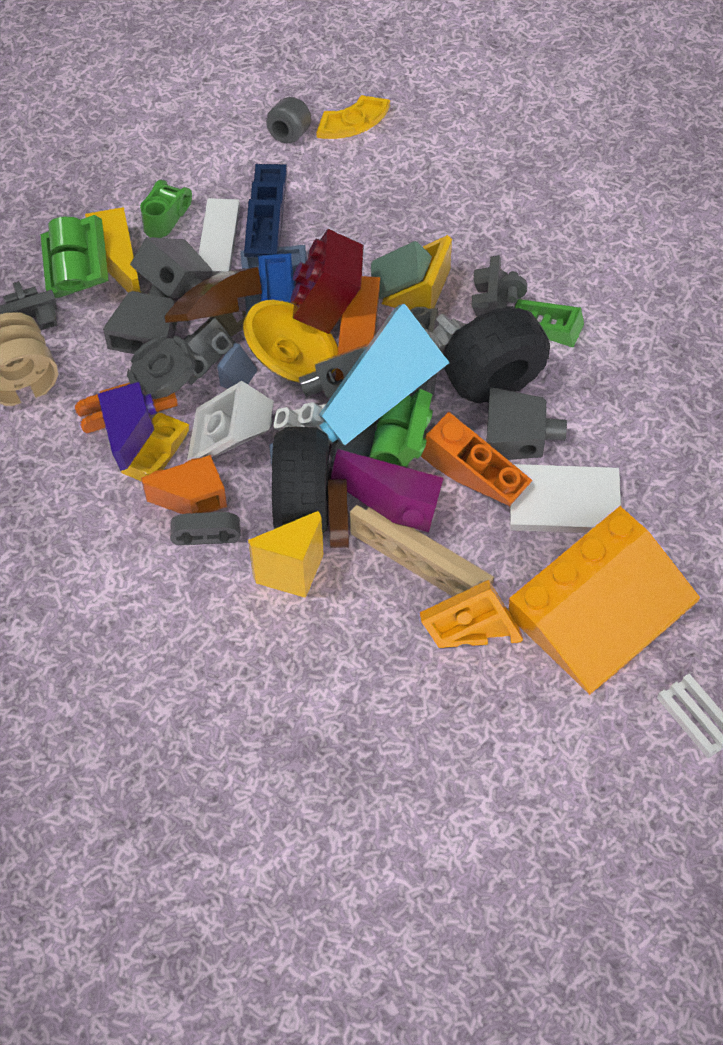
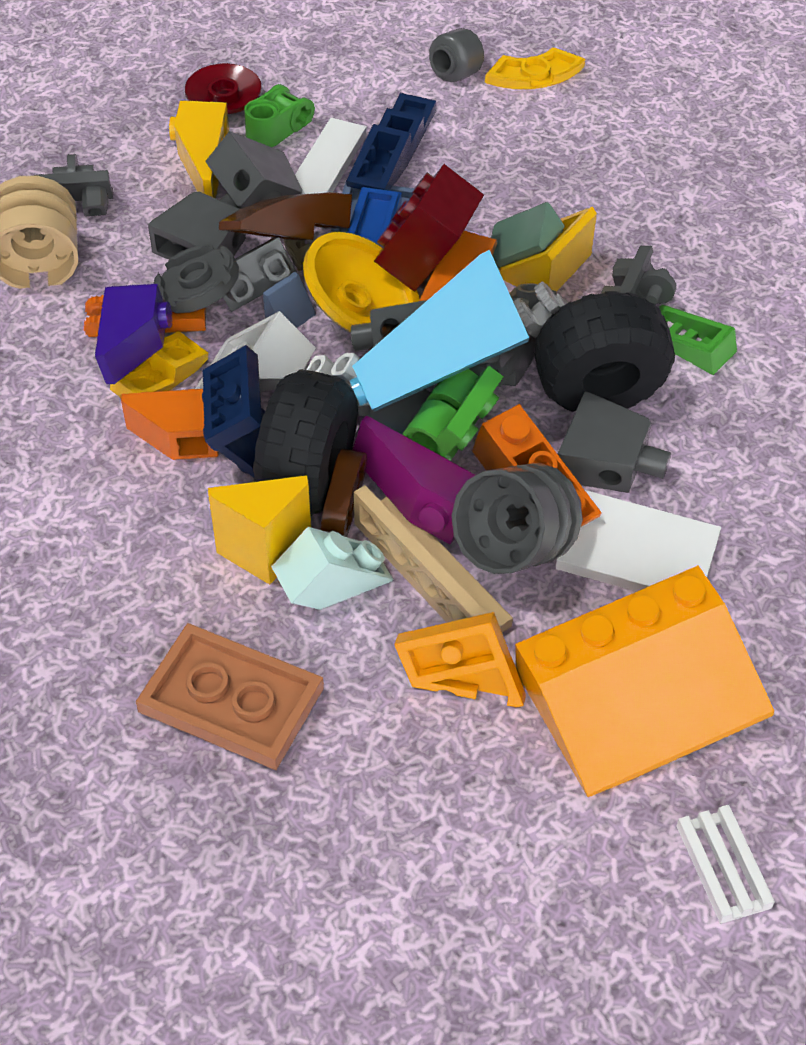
camera: 15 degrees right, 5 degrees down
(73, 255) = (148, 139): bright green plate -> none
(111, 190) = (225, 84): none -> dark red dish
(205, 528) = (177, 472): dark grey beam -> none
(238, 469) = (233, 407): none -> dark blue bracket
(311, 690) = (230, 695): none -> nougat plate
(349, 575) = (329, 568): none -> light aqua slope
(466, 517) = (516, 517): none -> dark grey wheel

